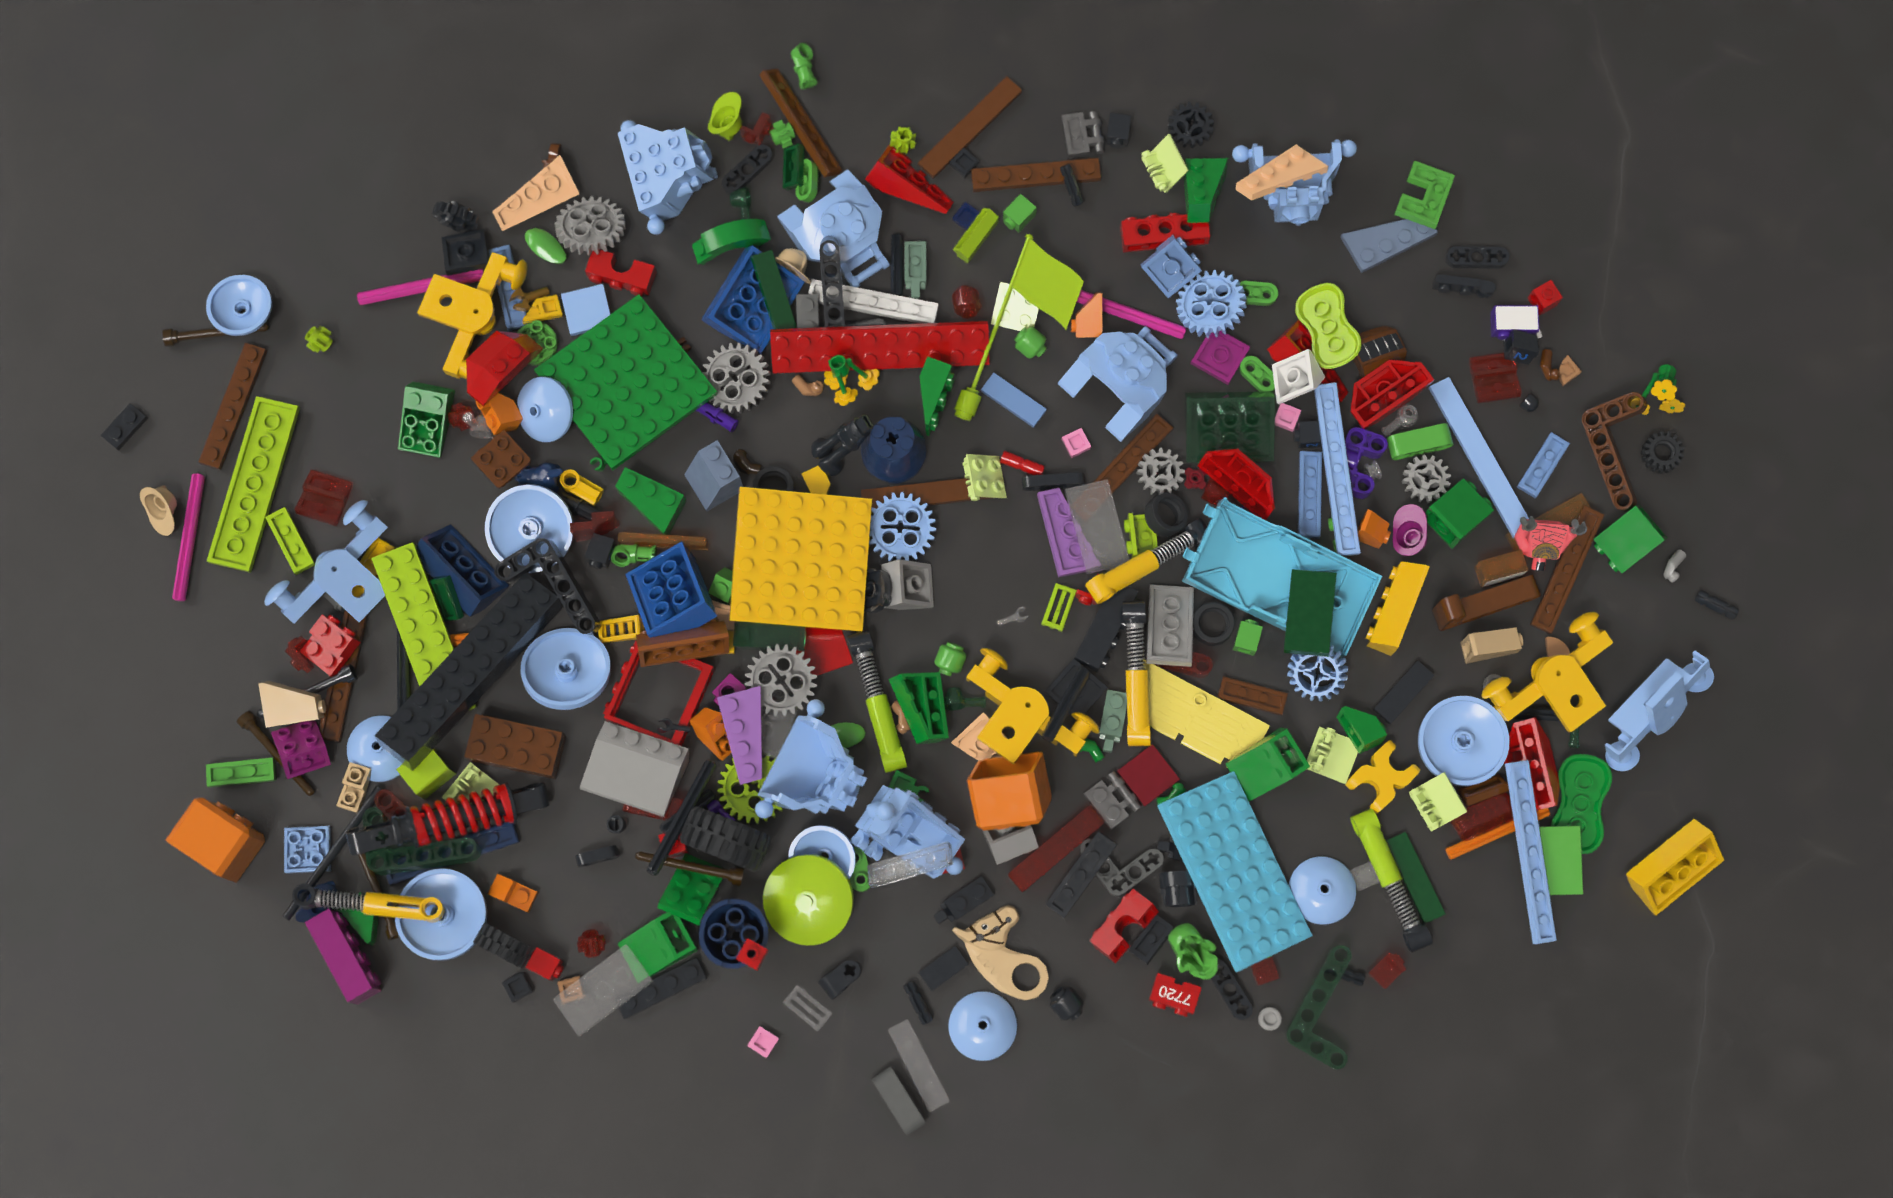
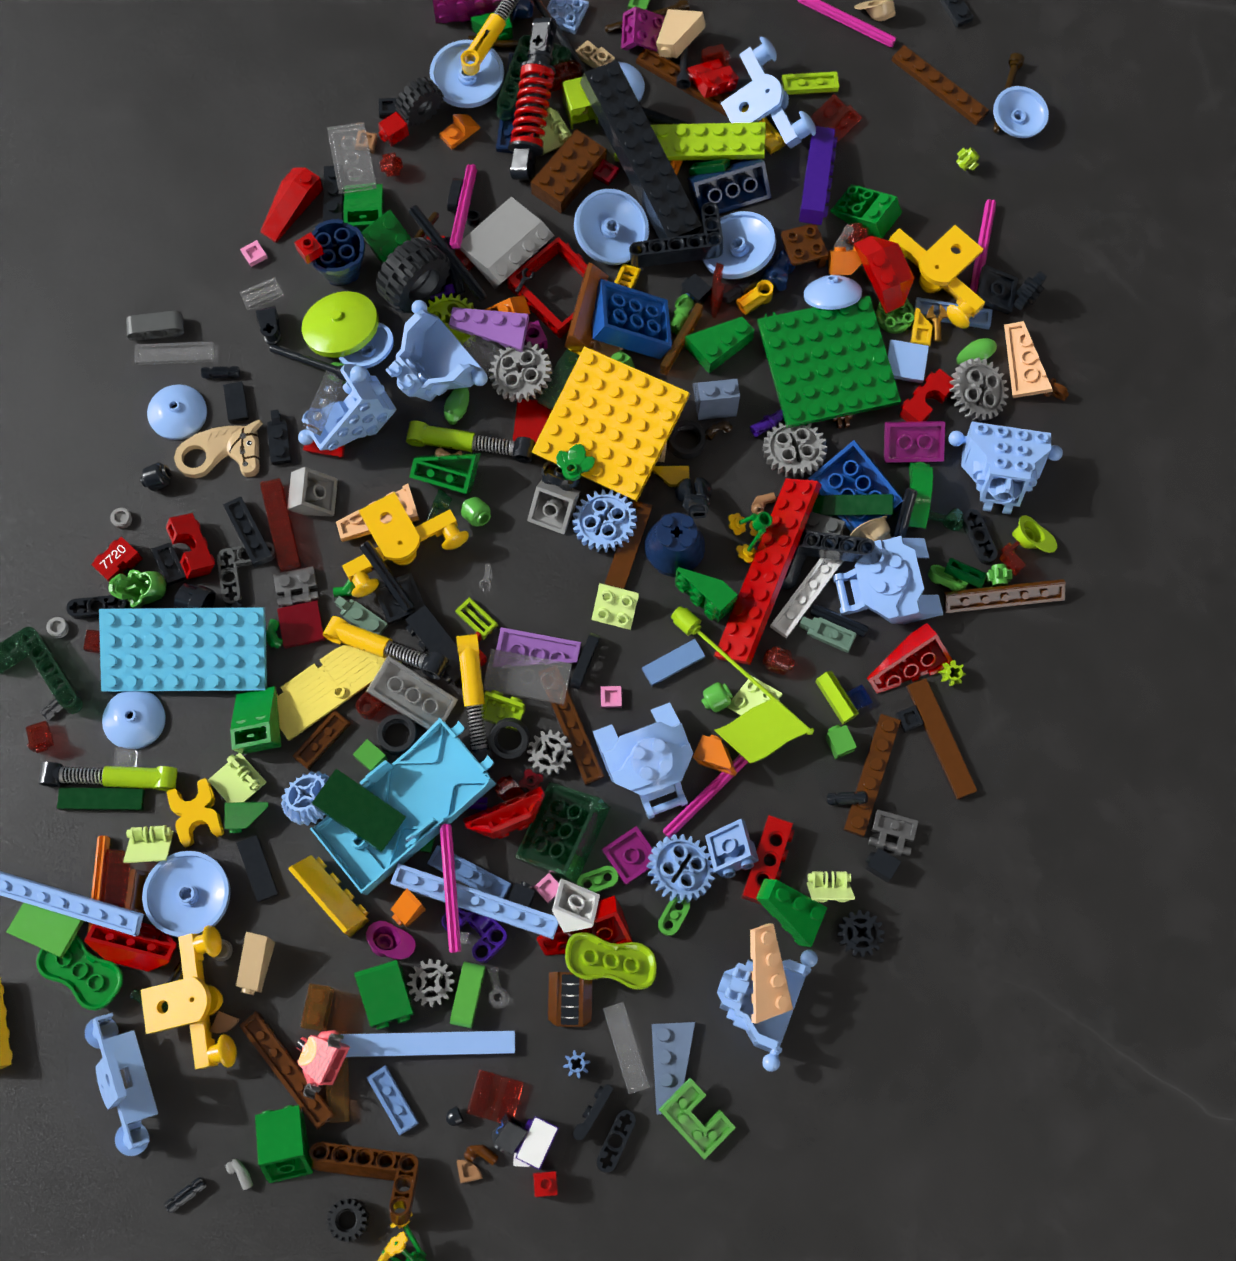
camera: 110 degrees right, 5 degrees down
(253, 484) = (868, 75): lime plate -> none
(413, 479) = (817, 176): none -> dark purple brick
(497, 707) = (606, 172): none -> dark red plate
(612, 834) = (463, 206): none -> dark pink axle
(676, 265) = (914, 441): none -> magenta plate
(678, 1035) = (291, 200): none -> red wedge
(765, 240) = (905, 512): none -> black axle
(803, 65) = (1056, 621): bright green connector -> none
(856, 575) = (576, 460): none -> green plate
(863, 867) = (307, 360): none -> black piece
(906, 783) = (390, 433): green plate -> none
(1009, 793) = (335, 494): orange plate -> none
(1020, 463) = (611, 645): red piece -> none
(1125, 1019) = (121, 518): none -> light grey tile
(1339, 493) = (450, 888): none -> dark pink axle
(1387, 390) = (526, 983): red wedge -> none
(1393, 284) = (626, 1048): none -> clear tile
(1436, 316) = (575, 1057): none -> medium blue gear
(1456, 611) = (295, 976): reddish brown beam -> none

